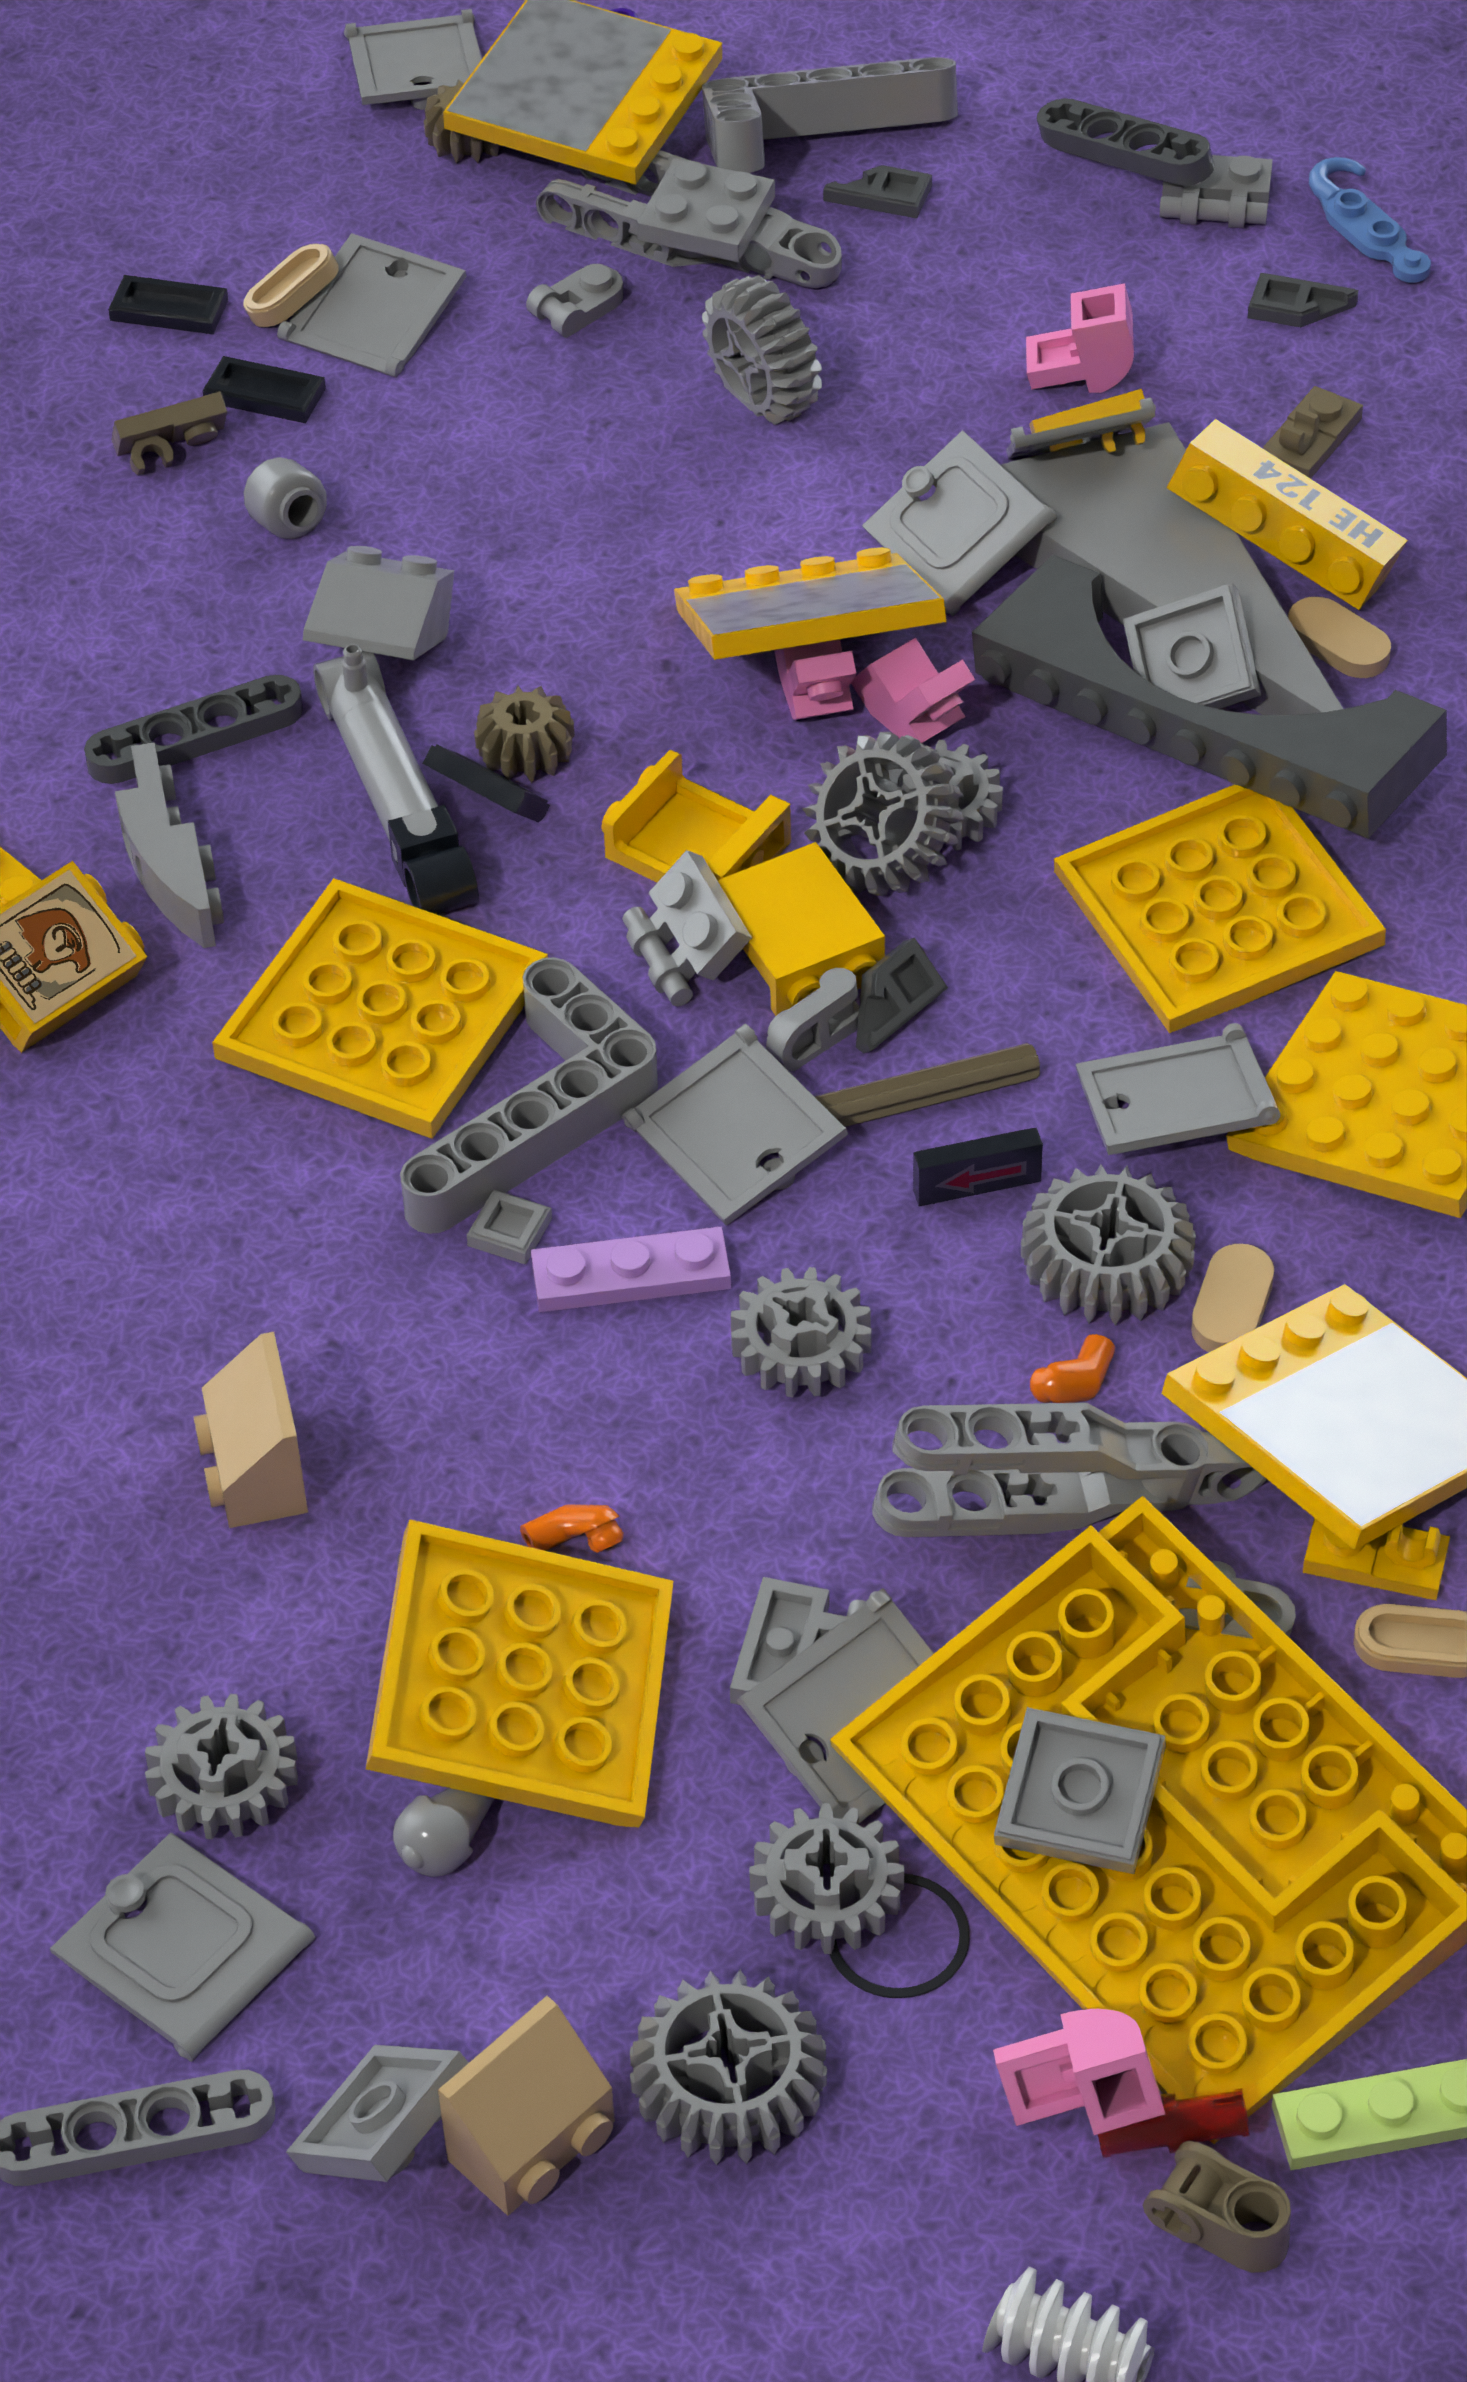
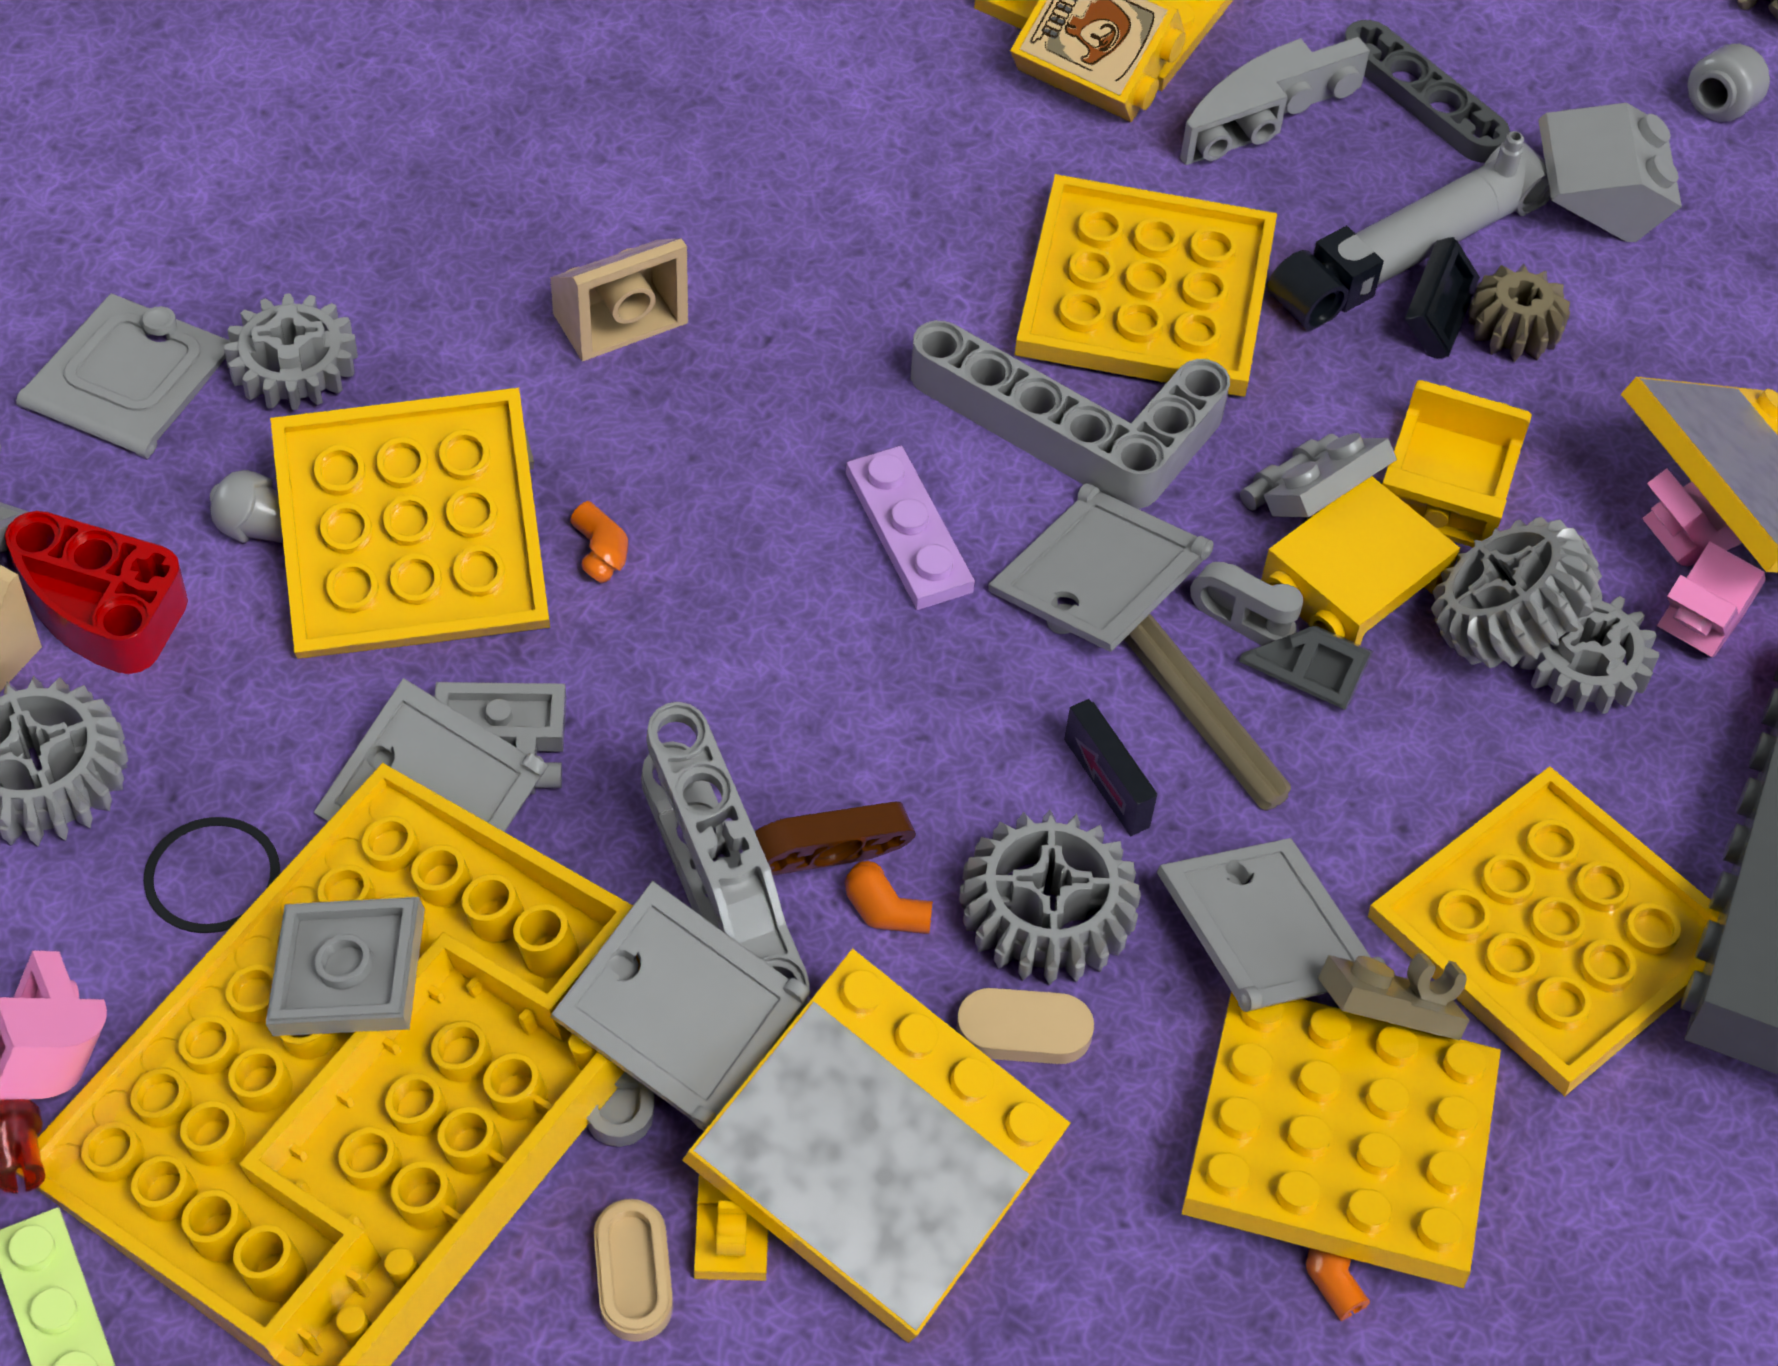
camera: 70 degrees right, 5 degrees up
(509, 1226) = (931, 429): light grey tile -> none
(527, 1951) = (98, 588): none -> red beam
(790, 1878) = (244, 797): light grey gear -> none
(802, 1332) = (871, 659): light grey gear -> none
(1015, 1369) = (835, 837): none -> reddish brown beam
(1209, 1510) = (690, 1015): none -> light grey container
(1282, 1013) = (1416, 1002): none -> dark tan plate

